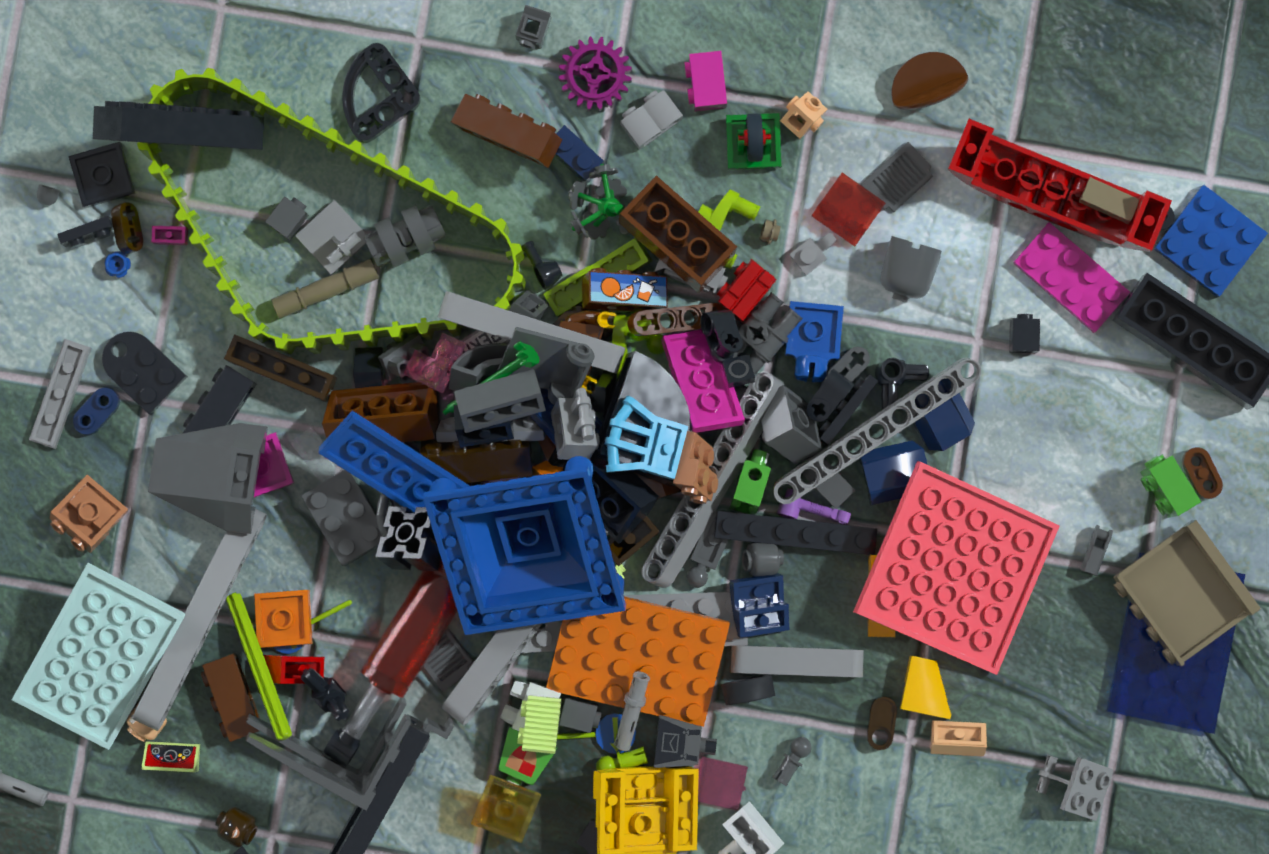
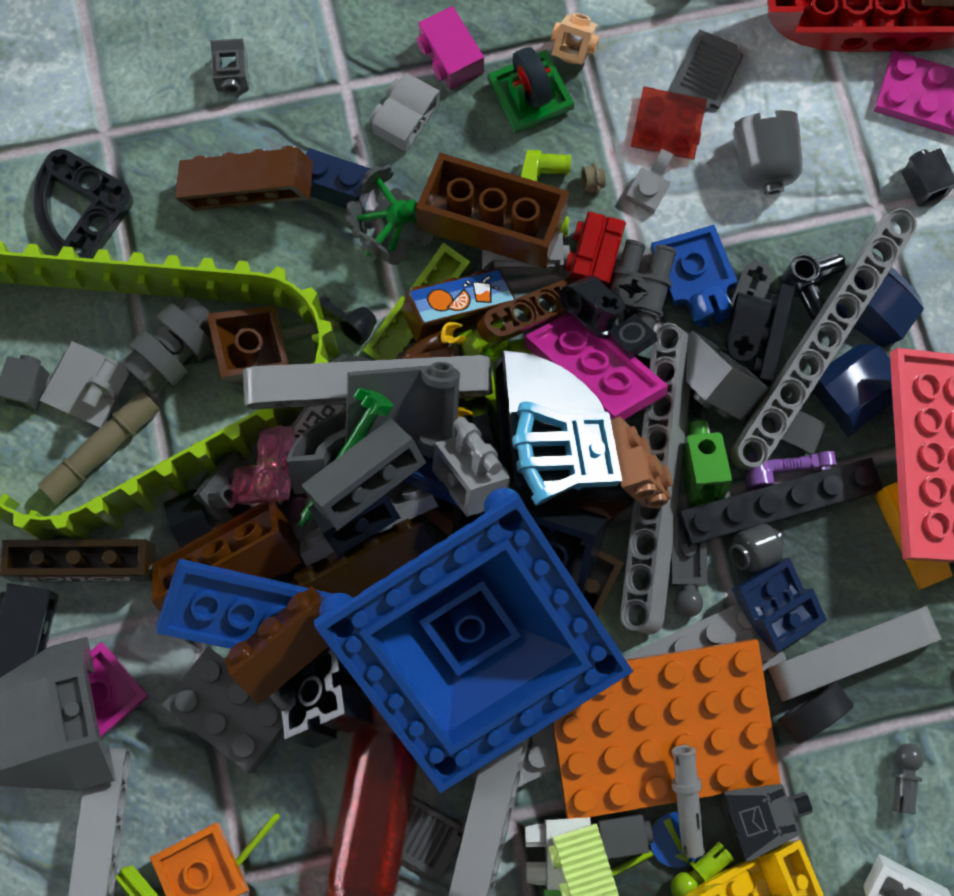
camera: 30 degrees left, 10 degrees down
(395, 494) = (278, 647): none -> reddish brown brick
(460, 261) = (246, 340): none -> reddish brown slope
(583, 71) = (318, 67): magenta gear -> none
(721, 783) = (834, 845): clear pink piece -> none

